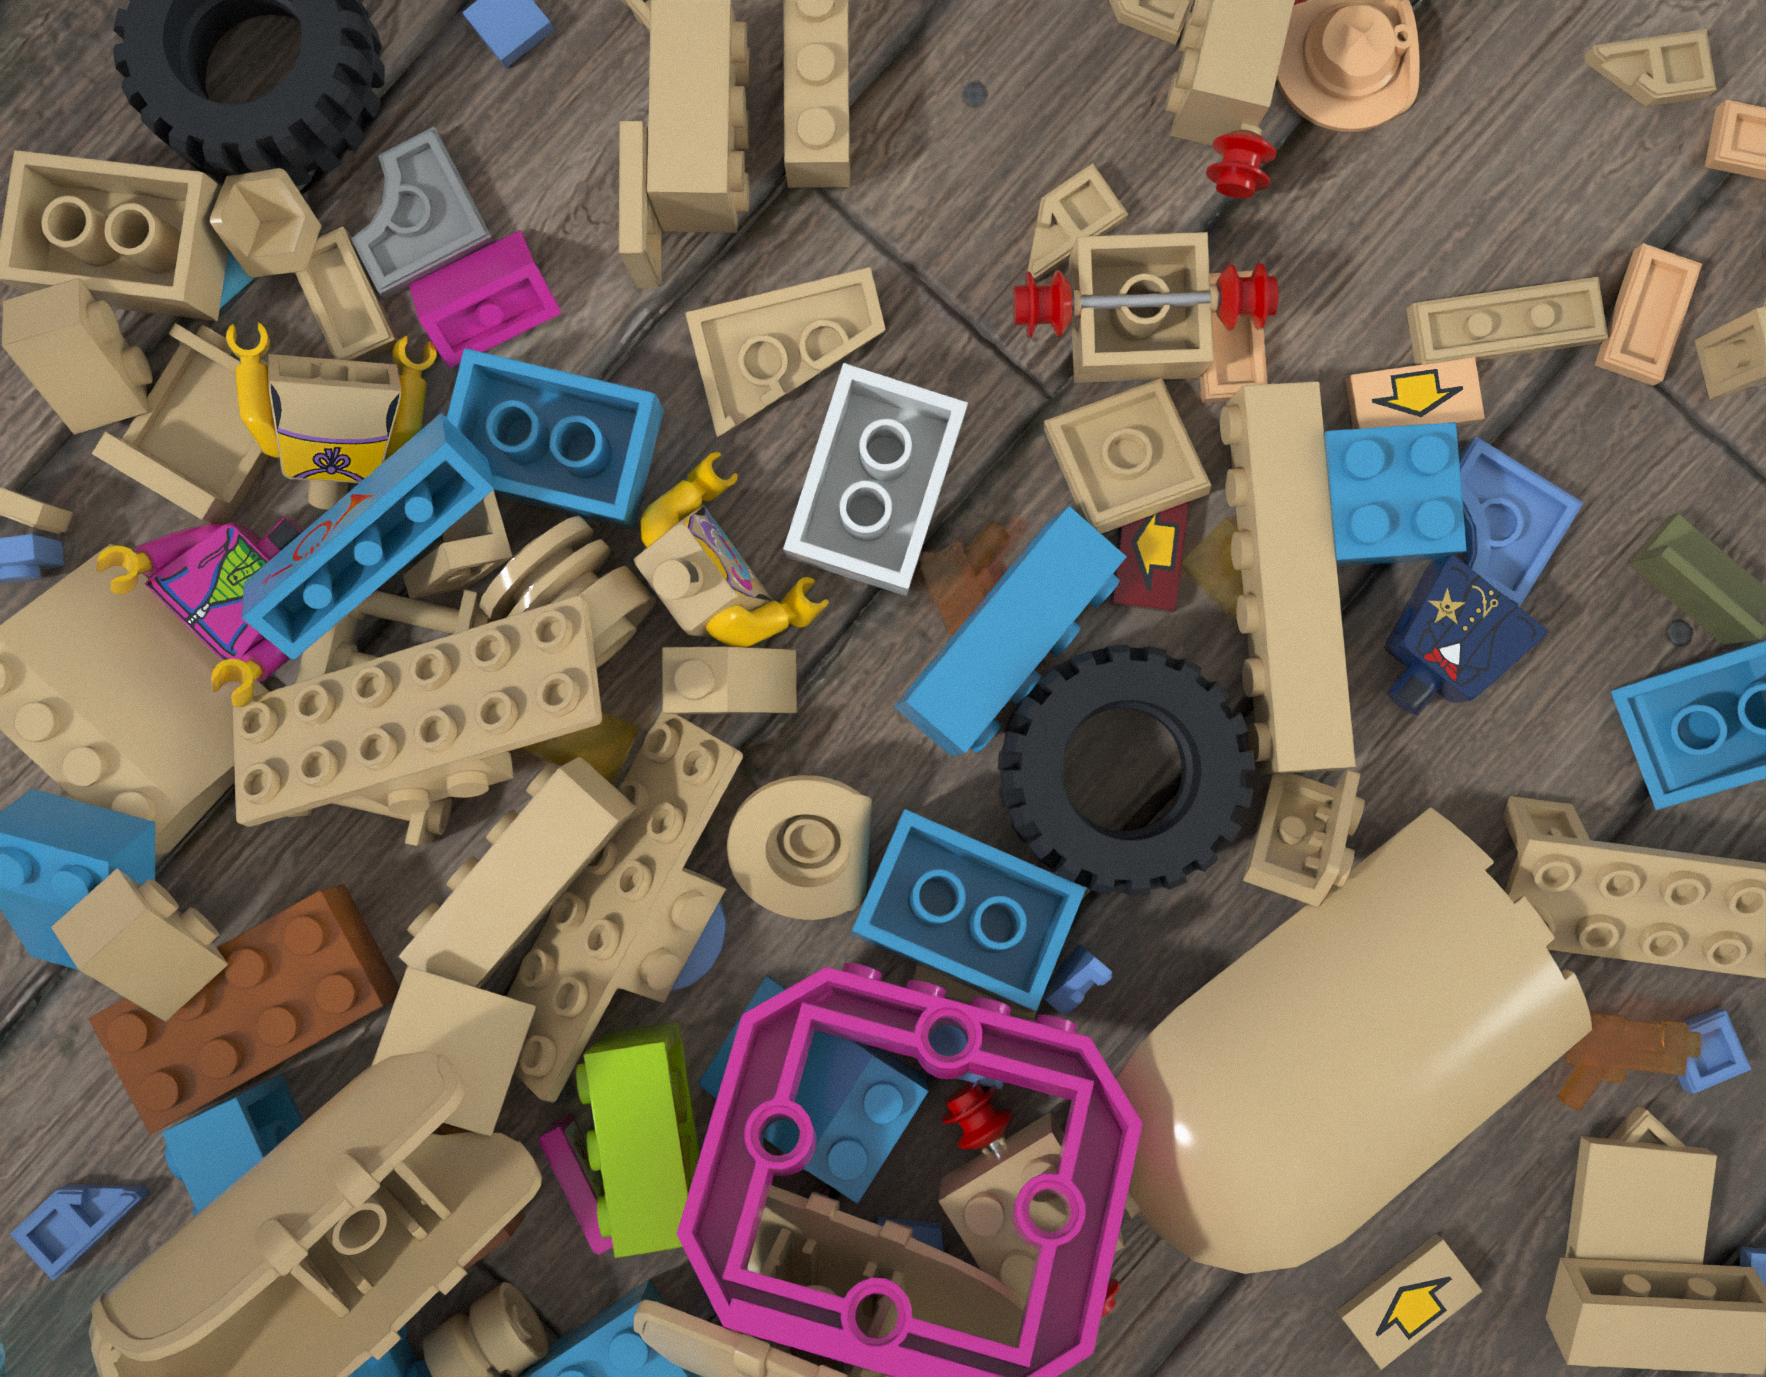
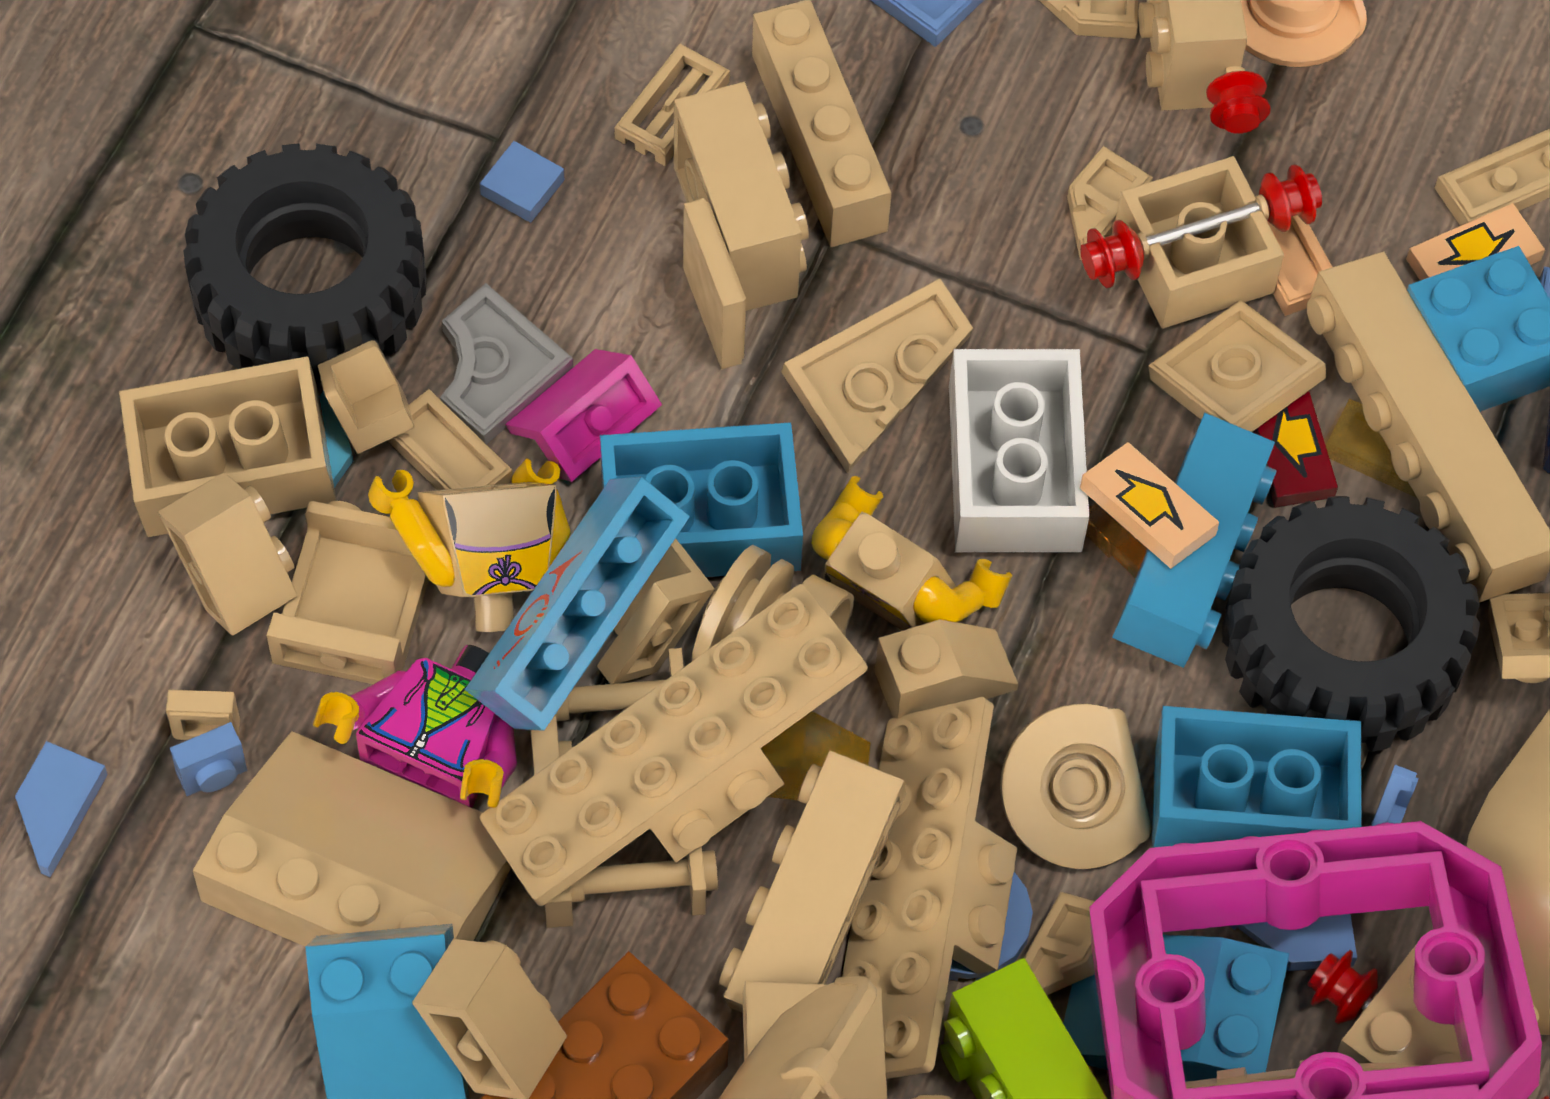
camera: 15 degrees left, 25 degrees down
(736, 987) = (1063, 945): none -> tan tile
(967, 601) = (1149, 505): none -> light nougat tile

